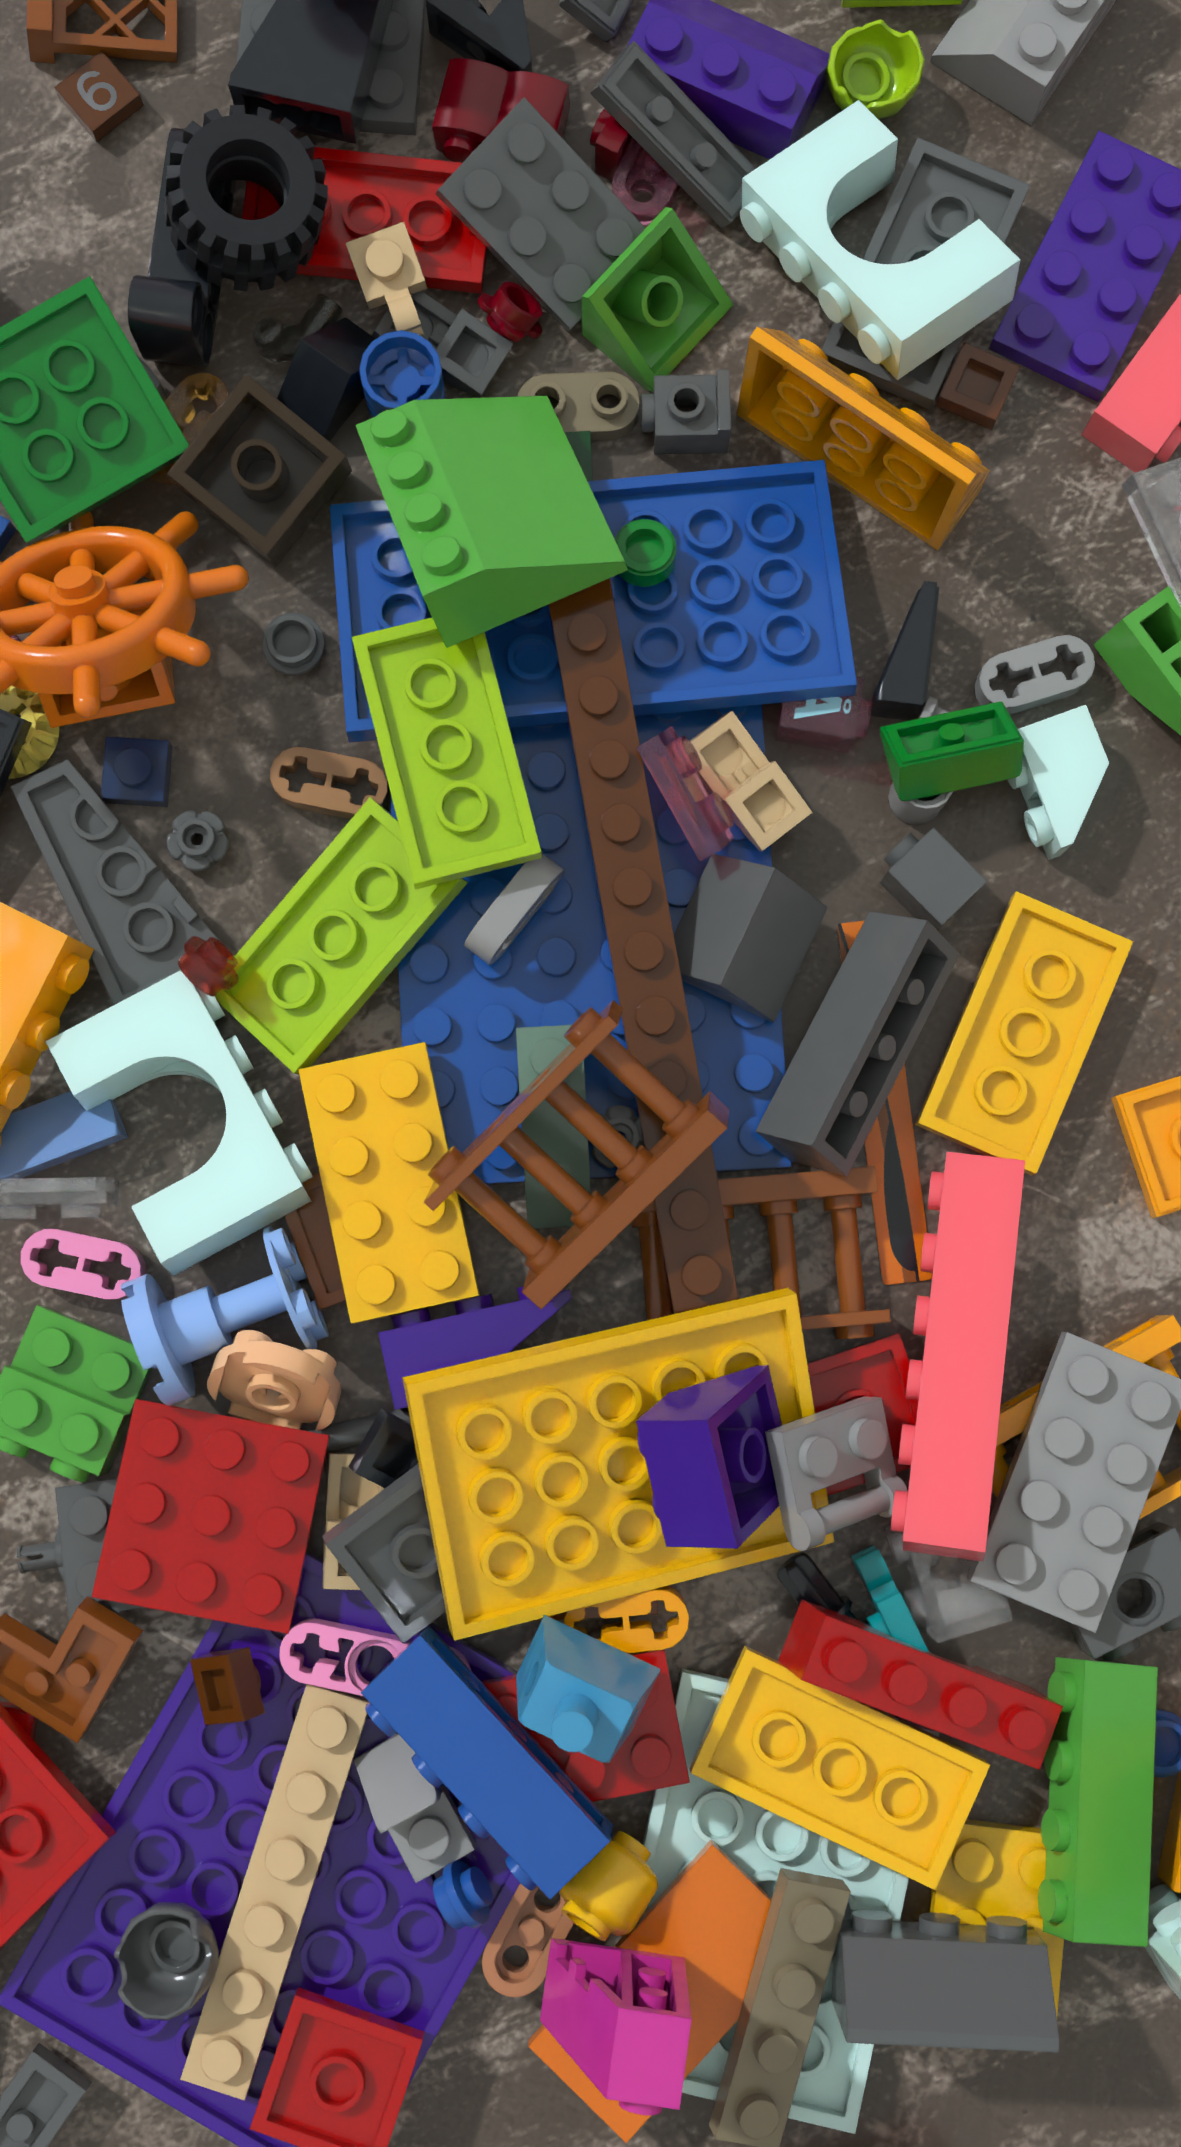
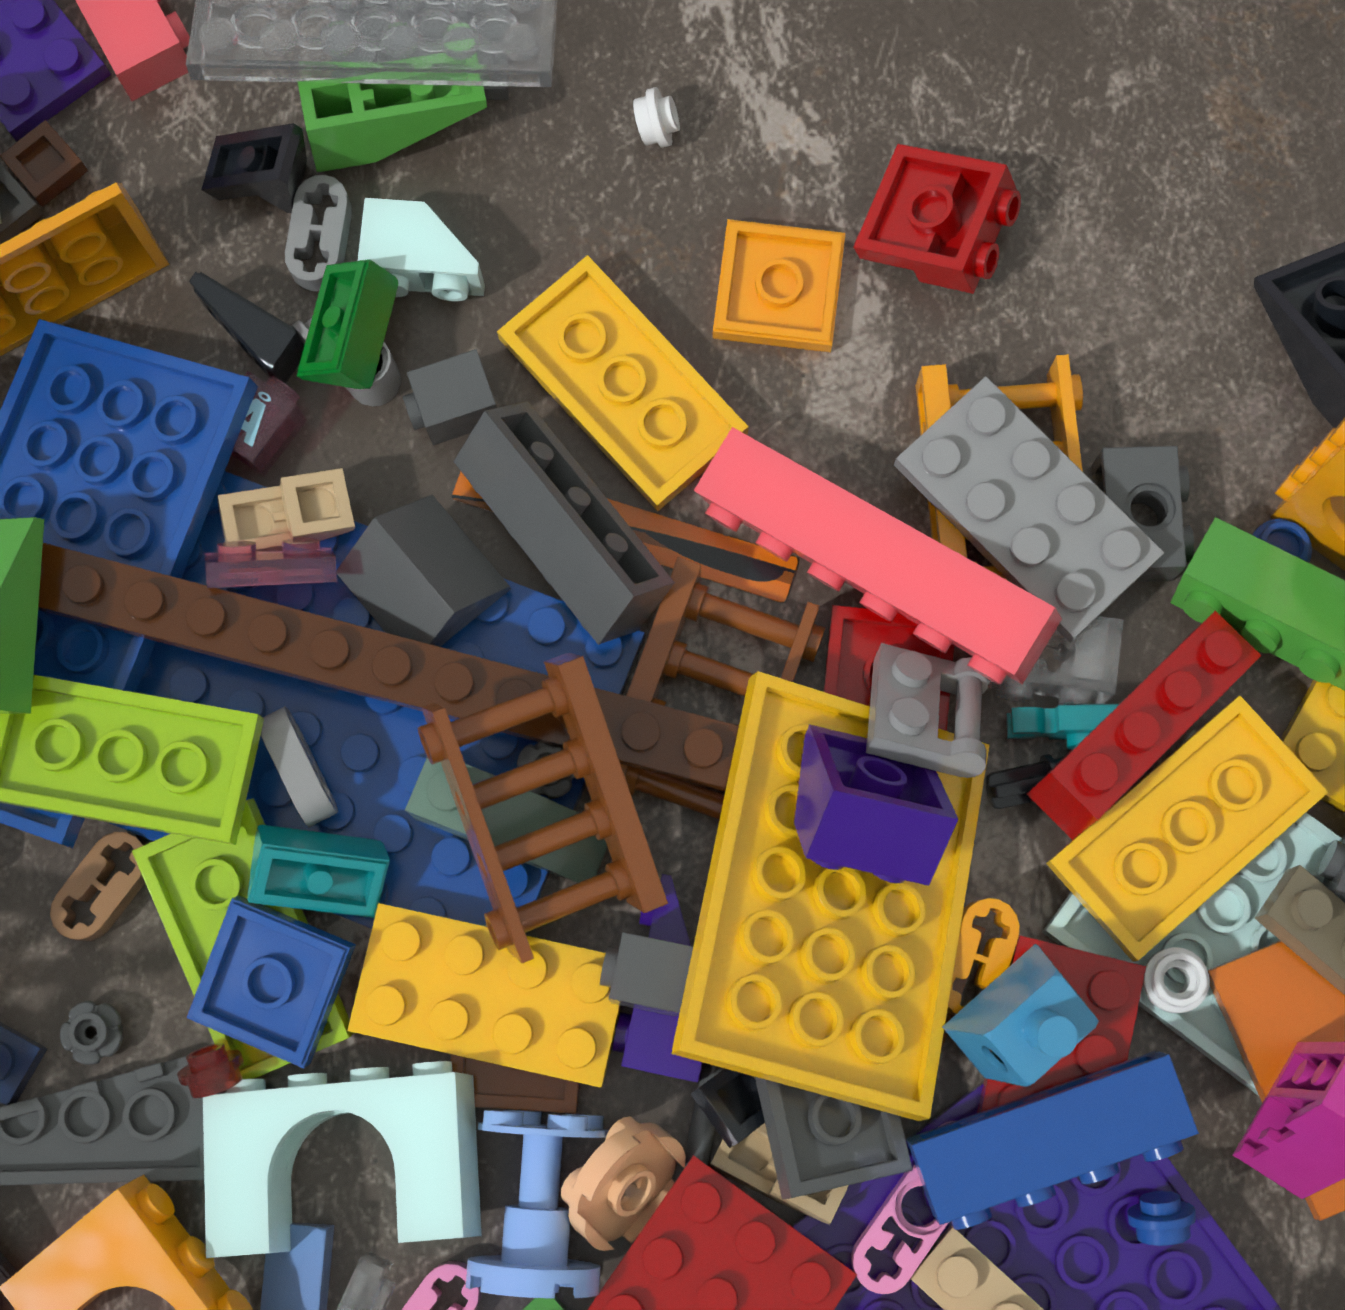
camera: 60 degrees left, 5 degrees down
(311, 979) = (271, 981): none -> blue tile
(412, 1810) = (1062, 1230): light grey slope -> none
(428, 973) = (317, 871): none -> teal slope
(468, 1320) = (646, 973): none -> dark grey brick
(528, 1926) = (1217, 1171): nougat plate -> none
(611, 1889) = (1213, 1079): yellow head -> none
(647, 551) = (40, 498): green tile -> none
(690, 1837) = (1195, 975): none -> white plate
(1071, 585) = (258, 163): none -> black slope

